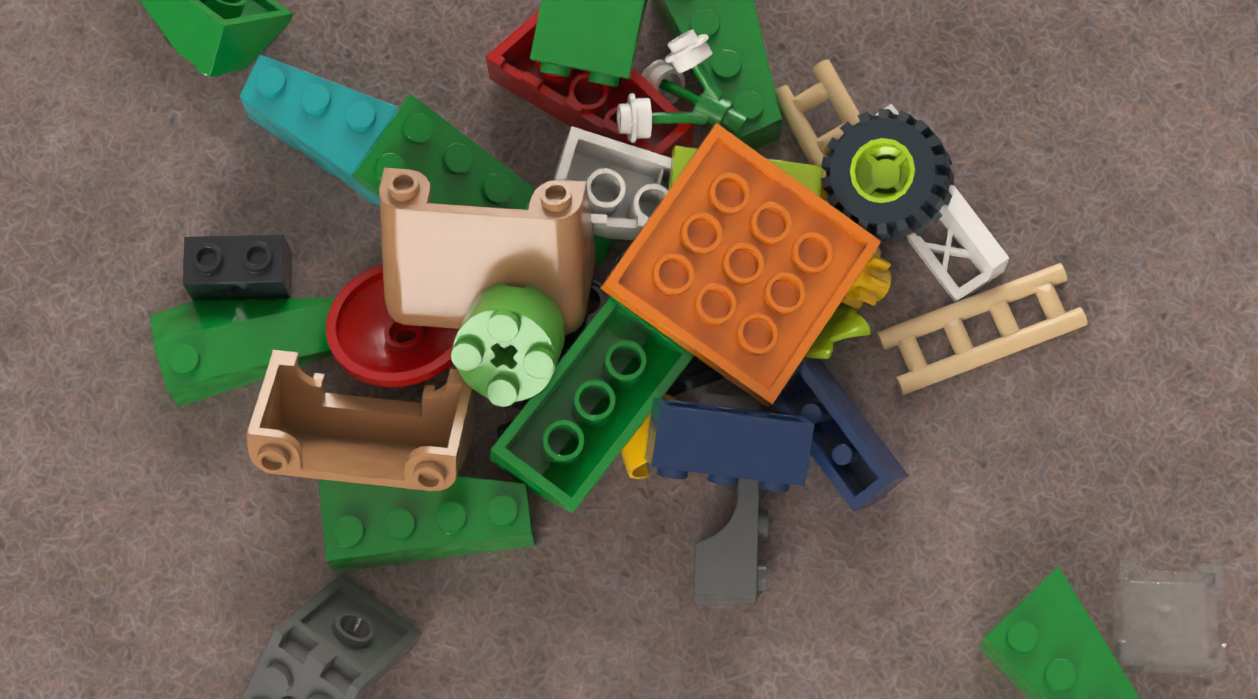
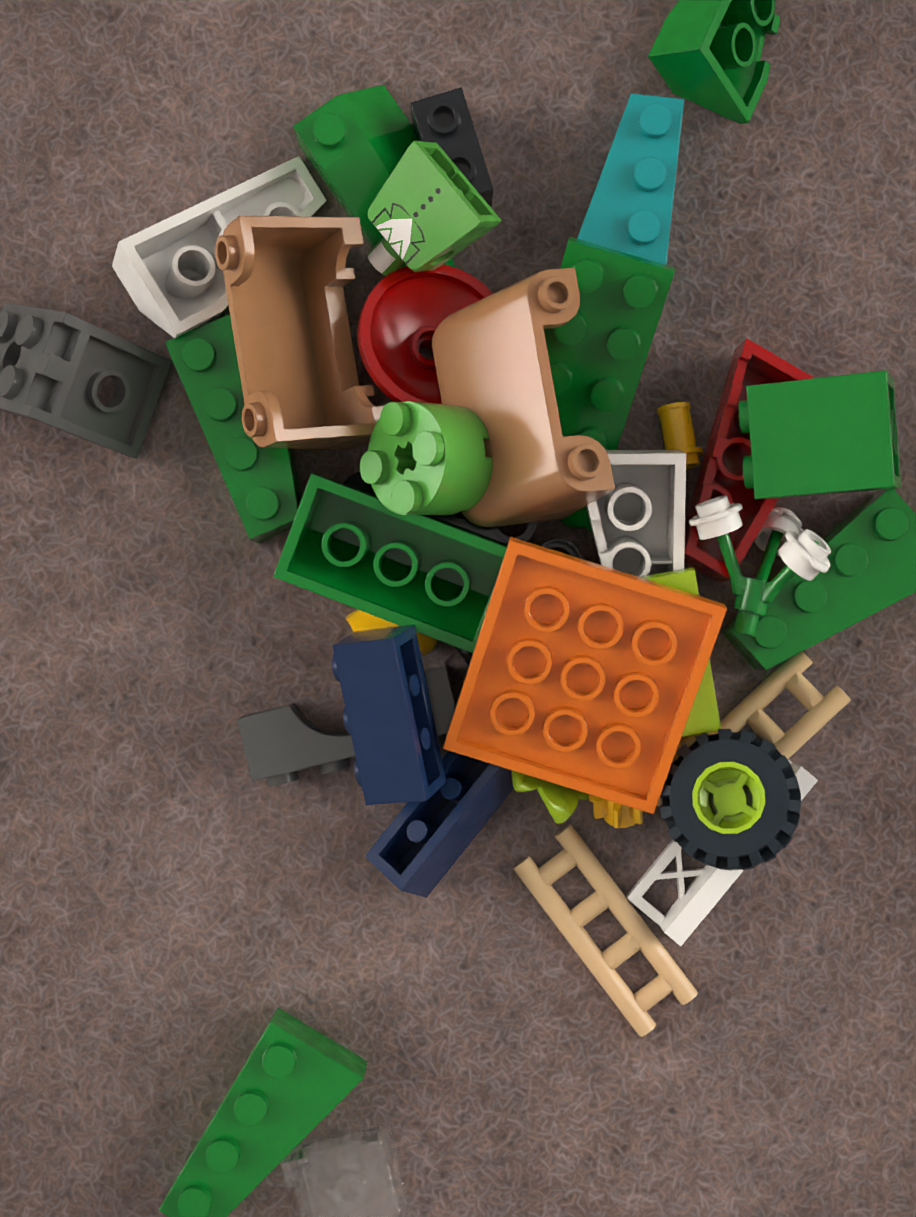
camera: 70 degrees right, 15 degrees up
(261, 520) = (173, 263): none -> white wedge
(289, 293) = (426, 212): none -> bright green torso
(542, 143) = (679, 431): none -> yellow pin

